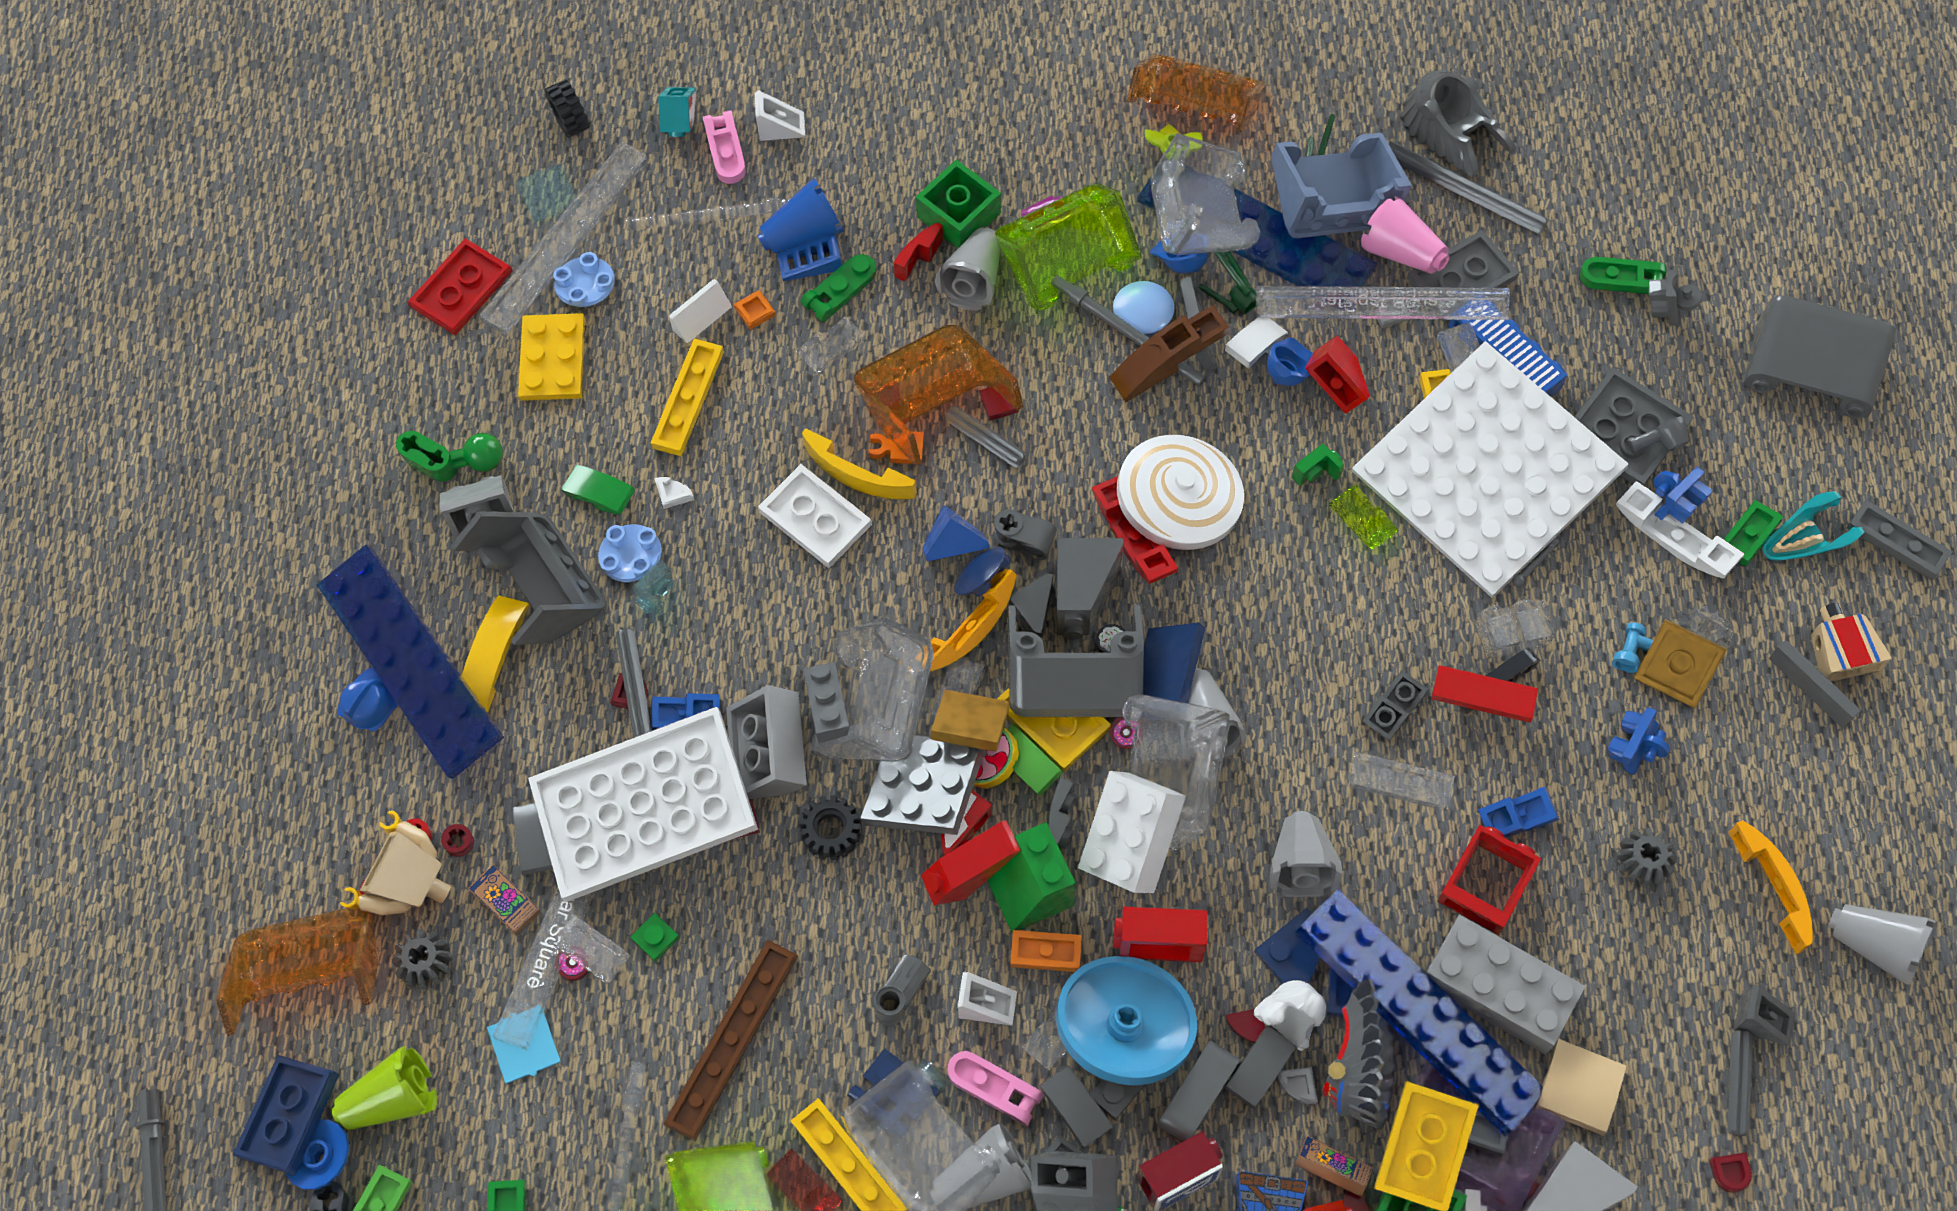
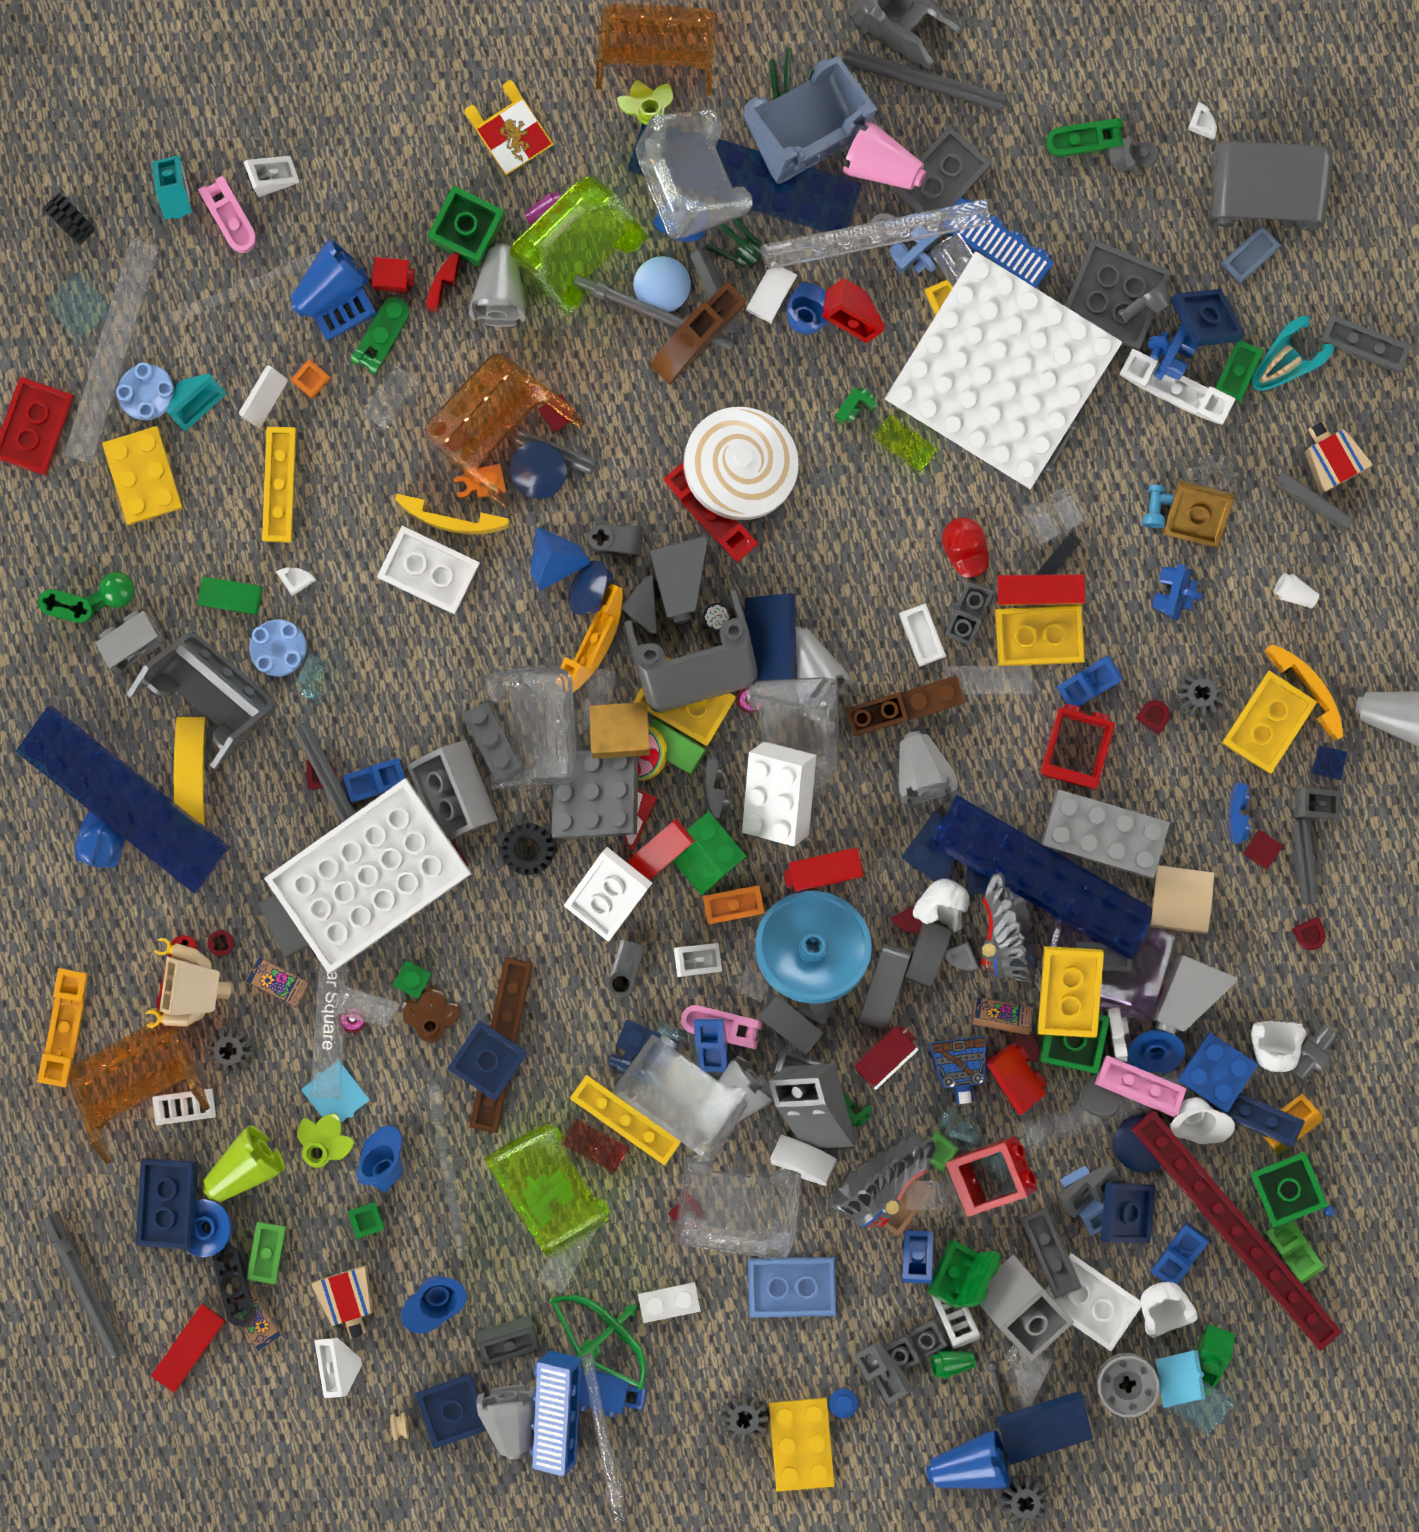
camera: 20 degrees left, 20 degrees up
(253, 884) = (64, 1027): none -> light orange slope
(318, 1003) = (159, 1108): none -> white slope
(495, 1088) = (327, 1137): none -> lime plate
(548, 1132) = (380, 1159): none -> blue piece
(630, 300) = (193, 399): none -> teal slope
(663, 977) = (429, 1010): none -> reddish brown plate
(708, 1048) = (487, 1060): none -> dark blue plate
(869, 233) = (392, 275): none -> red brick
(904, 894) = (607, 894): none -> white plate
(962, 446) = (538, 469): none -> dark blue dish
(976, 1099) = (711, 1044): none -> blue slope
(1029, 141) = (512, 133): none -> flag
(1300, 784) = (905, 706): none -> reddish brown slope
(1336, 716) = (922, 635): none -> white tile
(1407, 637) = (966, 547): none -> red piece
(1420, 340) = (904, 257): none -> medium blue hips
(1472, 749) = (1039, 635): none -> yellow tile
(1586, 870) = (1154, 715): none -> dark red tile
(1665, 1009) = (1238, 823): none -> blue slope
(1689, 1055) = (1262, 849): none -> dark red tile
(1722, 911) = (1269, 722): none -> yellow plate
(1726, 467) = (1207, 317): none -> dark blue plate
(1752, 291) = (1203, 122): none -> white tile
(1778, 775) = (1295, 591): none -> white cone
(1782, 425) = (1250, 255): none -> sand blue tile
(1788, 975) = (1329, 762): none -> clear blue plate

